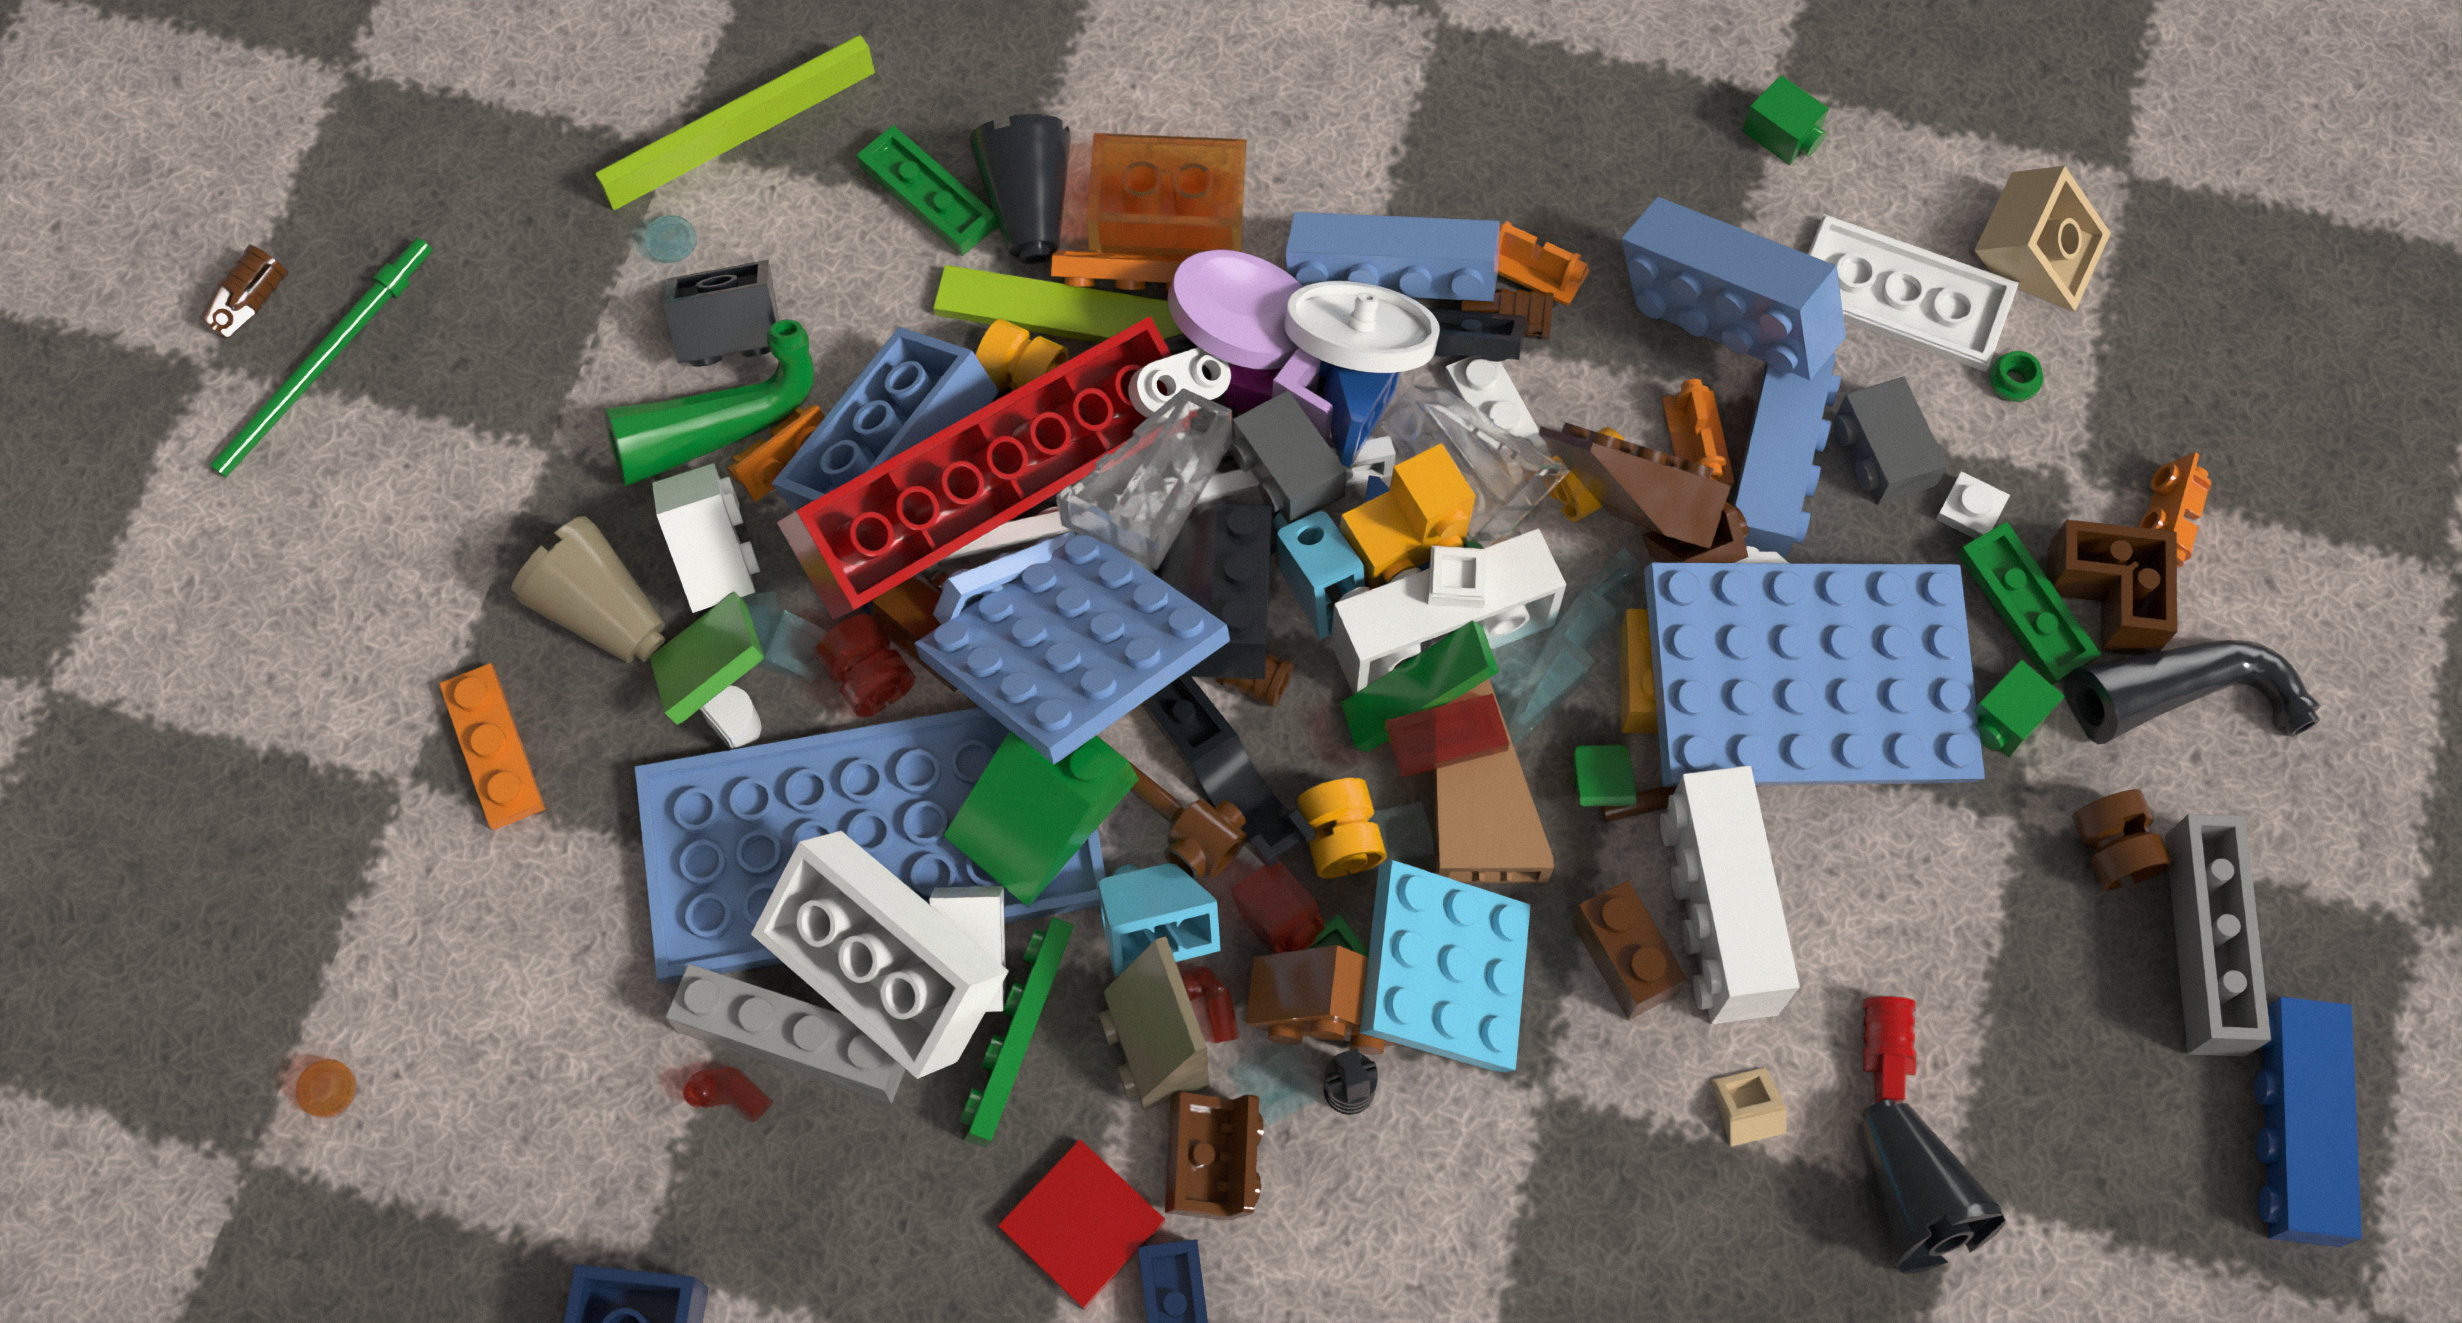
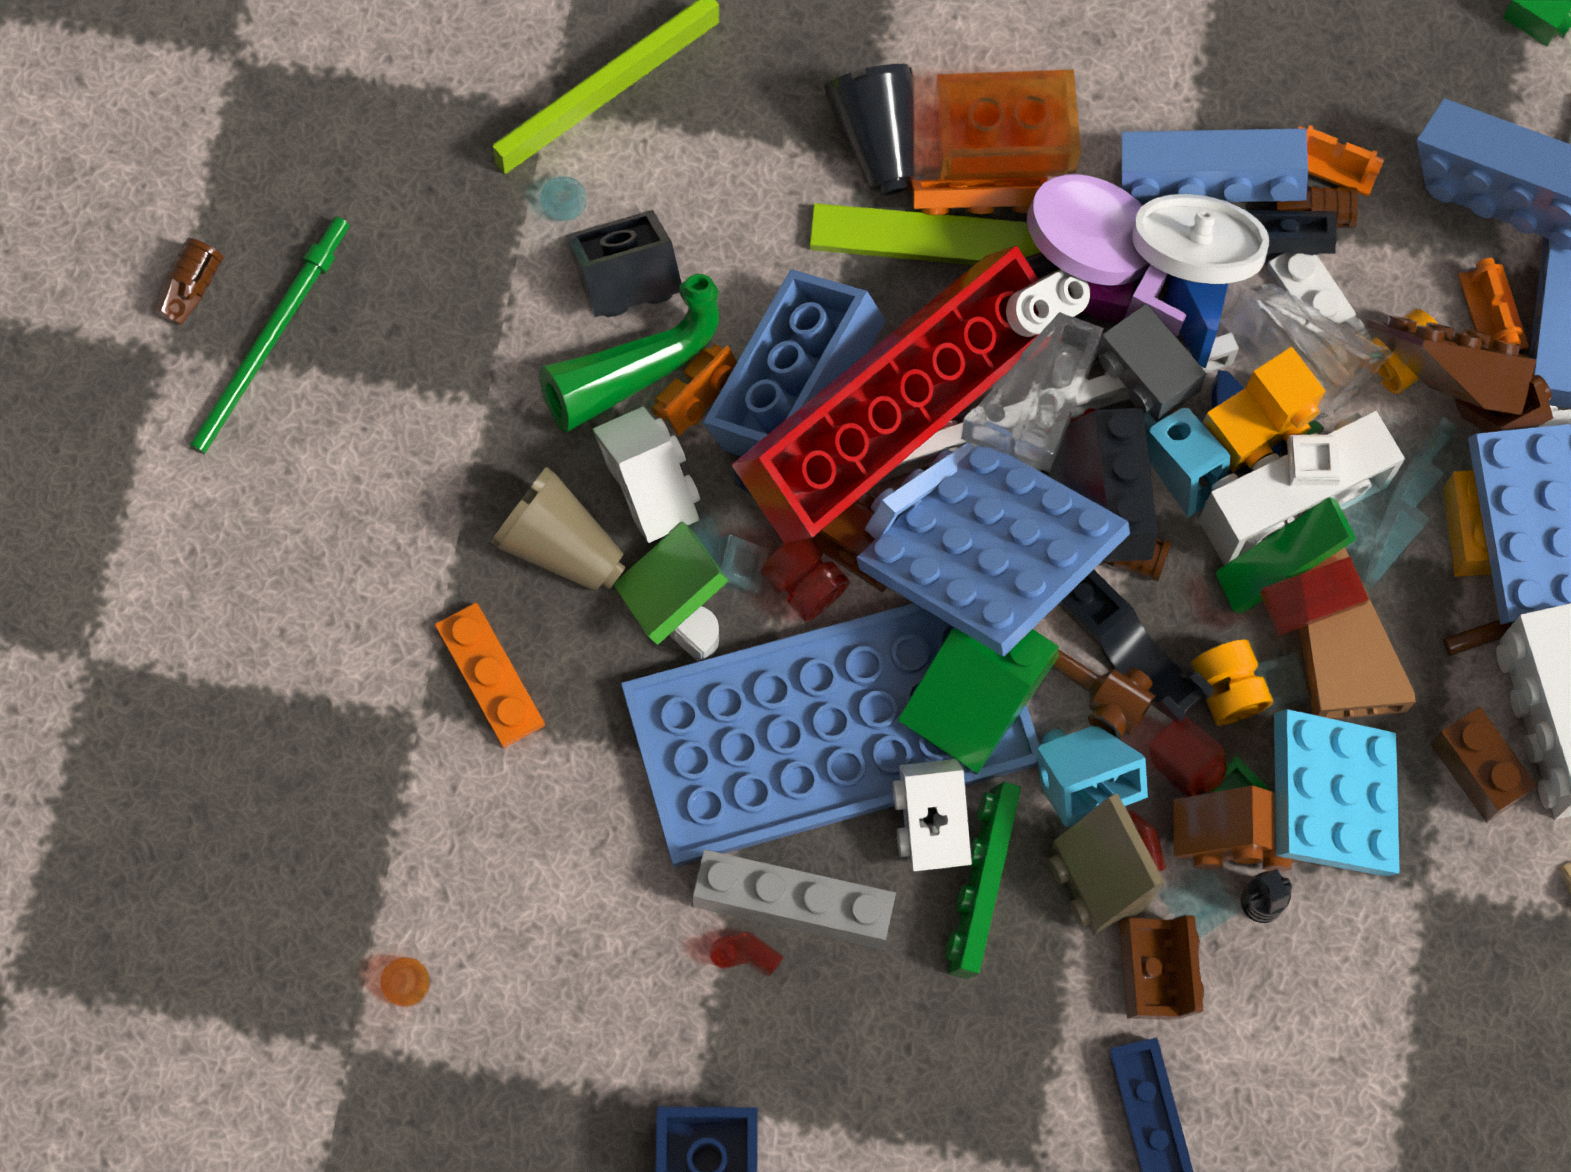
camera: 10 degrees left, 5 degrees up
(879, 953) = (870, 826): white brick -> none
(927, 190) = (787, 133): green plate -> none
(1015, 359) = (899, 290): light orange wheel -> none
(1082, 1224) = (1057, 1033): red tile -> none
(1603, 775) = (1445, 617): green slope -> none

